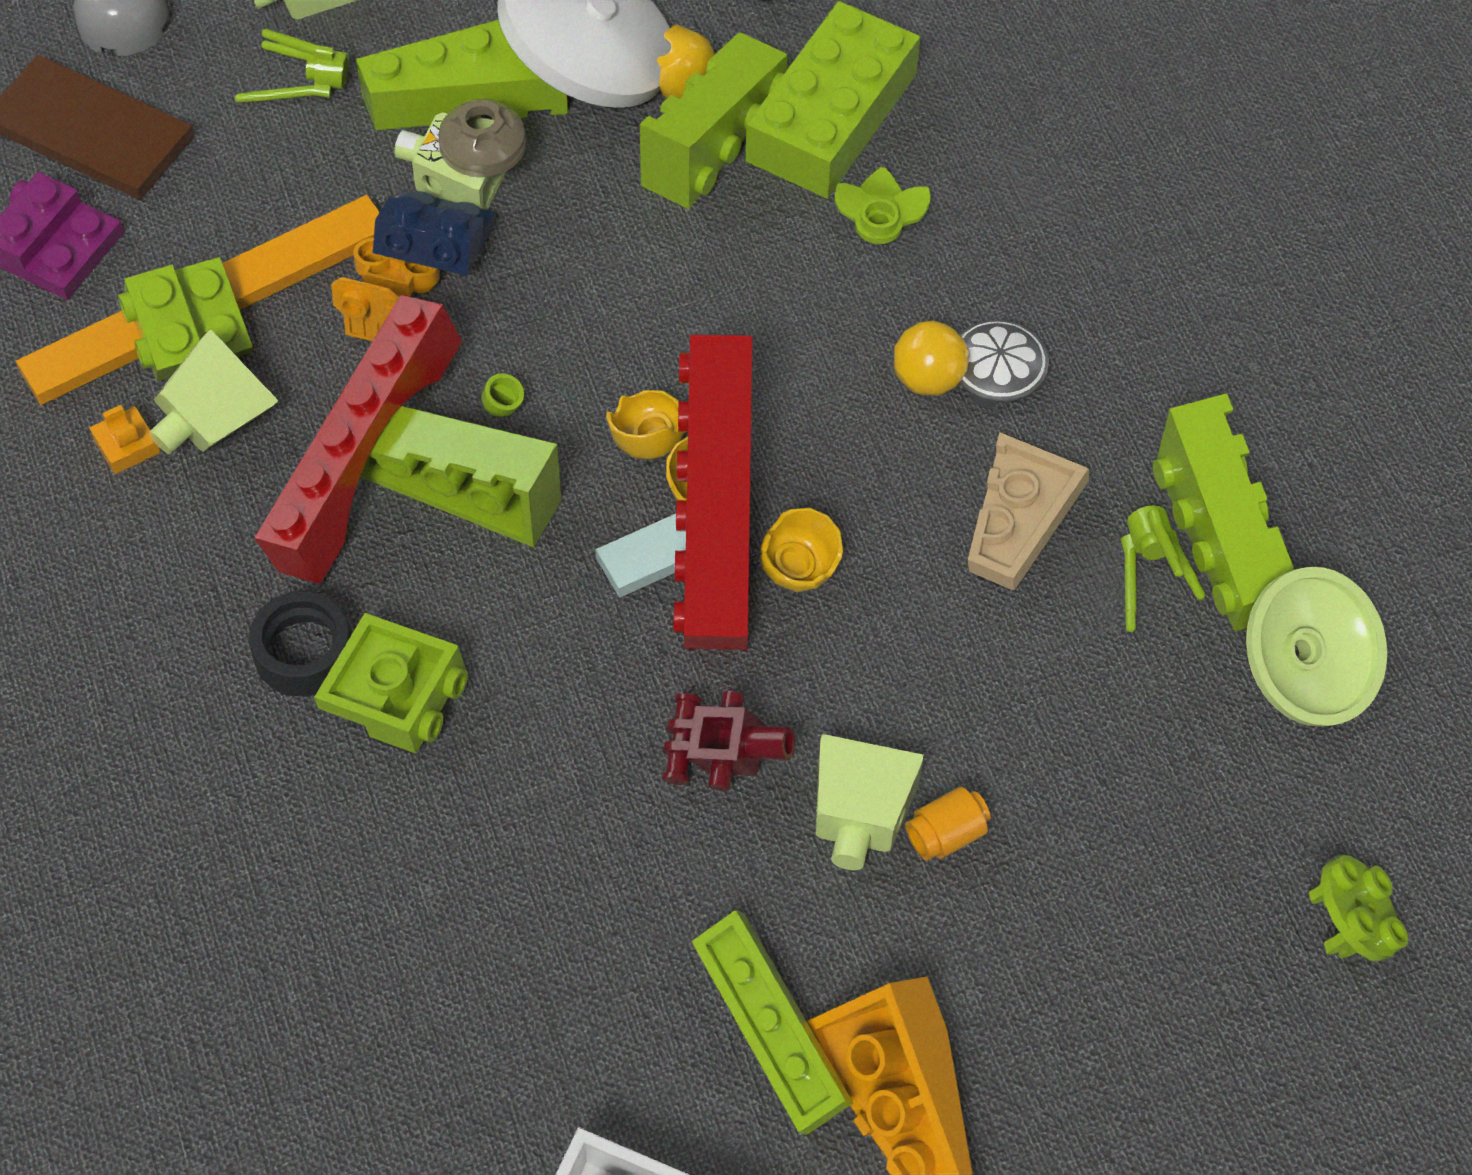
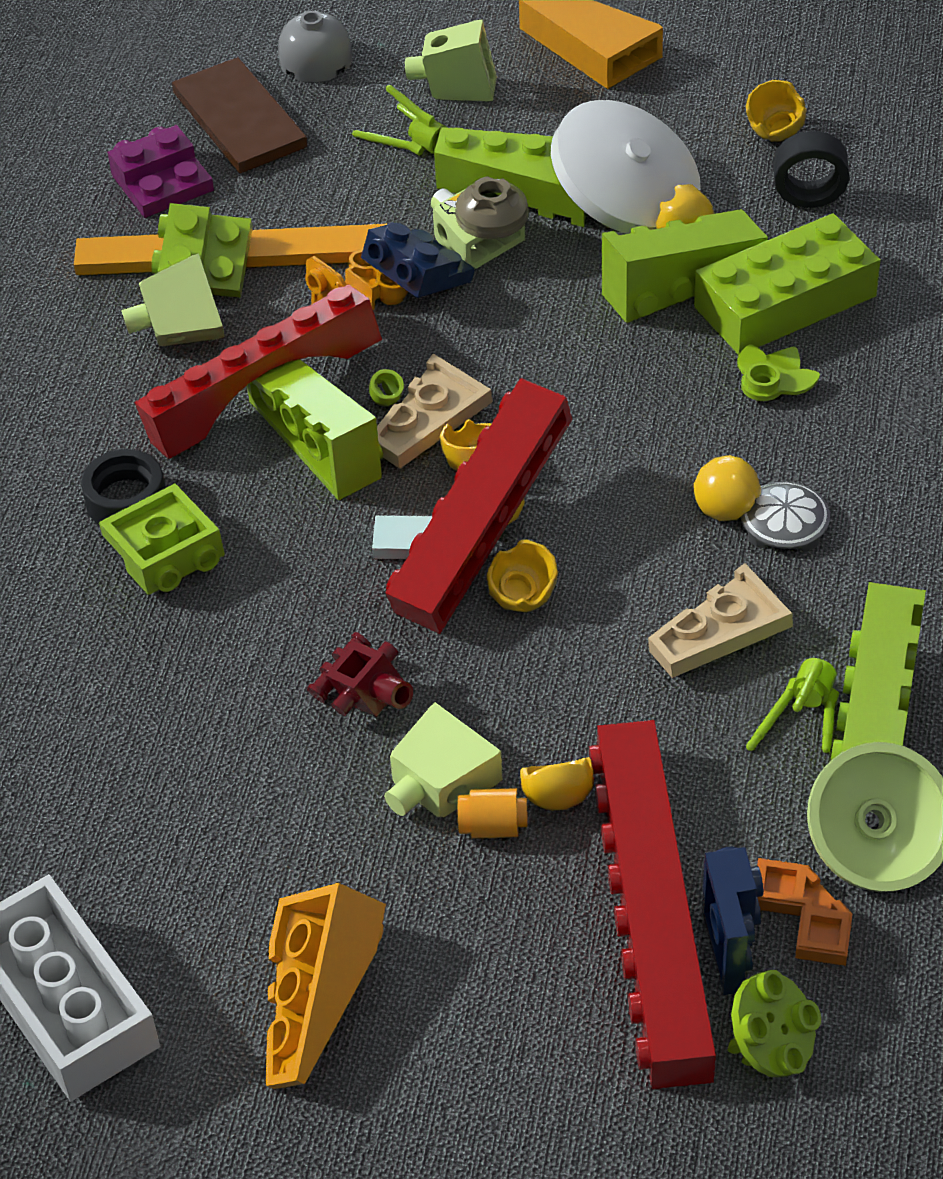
camera: 35 degrees right, 10 degrees down
(123, 438) = (106, 314): light orange tile -> none
(568, 396) = (433, 400): none -> tan wing
(772, 1023) = (254, 886): lime plate -> none
(991, 757) = (558, 784): none -> yellow hair
(1163, 839) = (654, 907): none -> red brick
(1251, 824) = (731, 912): none -> dark blue plate
(1318, 777) = (823, 920): none -> orange tile

